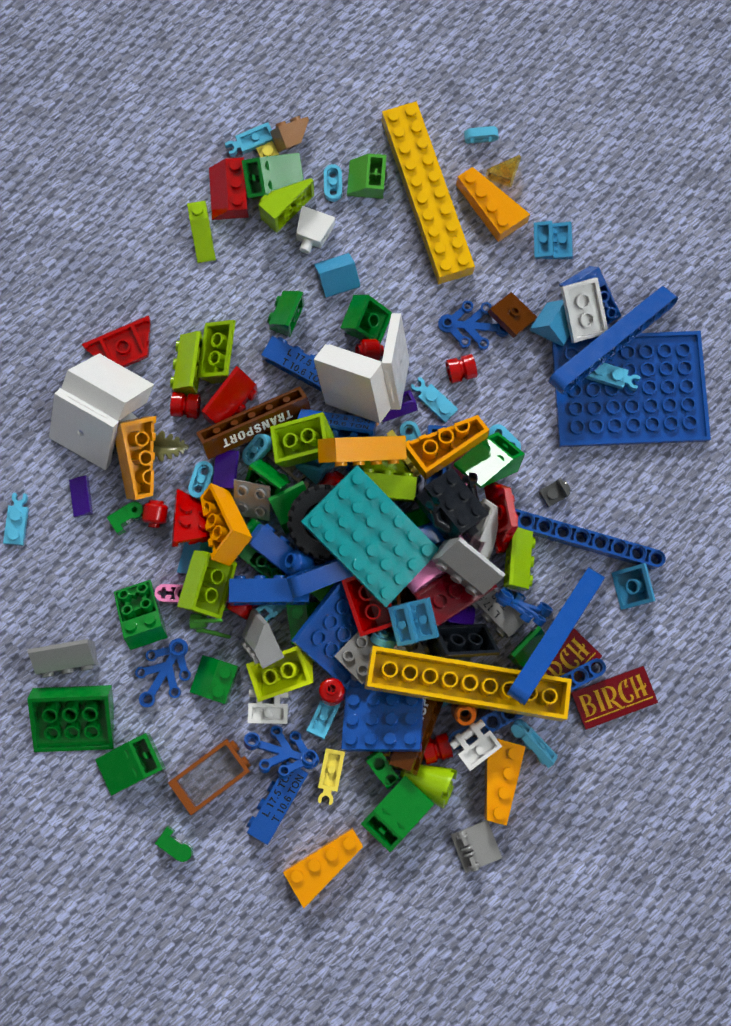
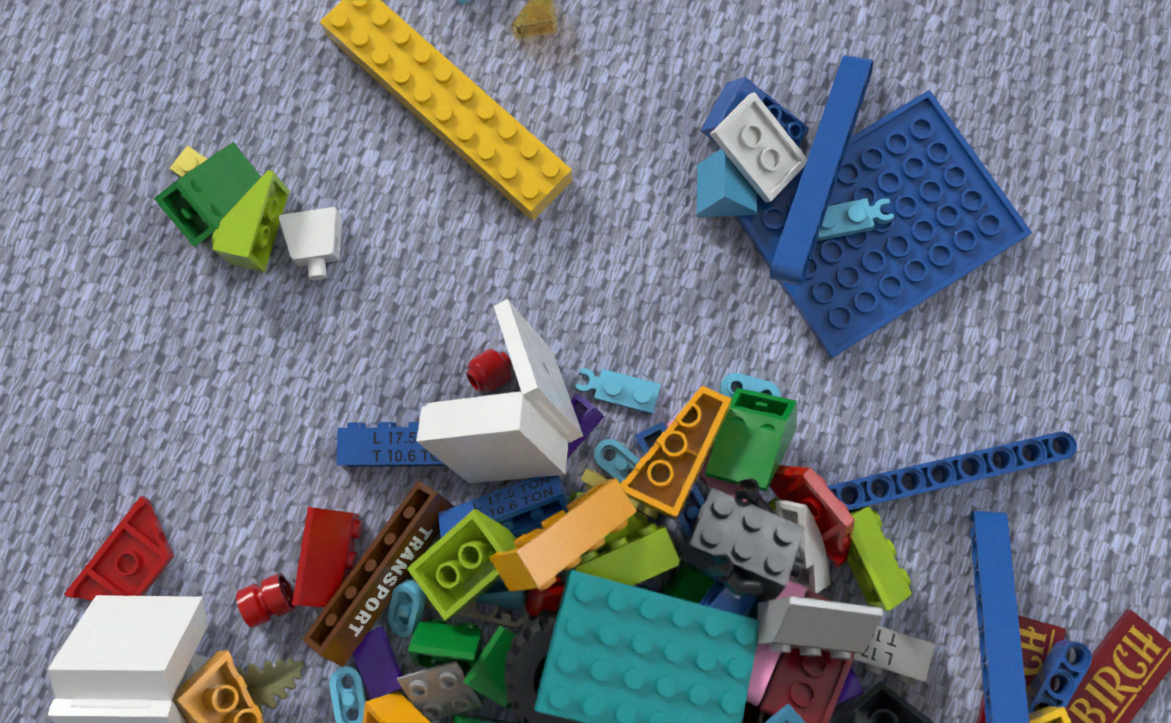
camera: 20 degrees left, 0 degrees up
(187, 363) = (237, 536): lime slope -> none
(201, 231) = (153, 329): lime slope -> none
(216, 351) = (268, 496): lime slope -> none
(228, 190) = (161, 250): red slope -> none
(250, 140) = (156, 160): medium azure plate -> none
(286, 313) = (340, 381): green slope -> none
(290, 134) = (206, 123): medium nougat slope -> none
(332, 184) = (305, 160): medium azure plate -> none
(337, 275) = (384, 285): dark azure slope -> none
(366, 318) = (459, 326): green slope -> none
(367, 176) = (349, 123): bright green slope -> none
(461, 368) = (633, 324): red wheel -> none
(469, 325) = (611, 255): blue plant -> none
(491, 204) = (544, 69): light orange wedge -> none
(512, 315) = (660, 208): reddish brown plate -> none
(526, 647) = (960, 684): green slope -> none
(528, 611) = (898, 638): blue plant -> none
(553, 240) = (656, 74): dark azure slope -> none
(555, 492) = (863, 427): dark grey bracket -> none
(633, 586) = (1052, 502): dark azure slope -> none

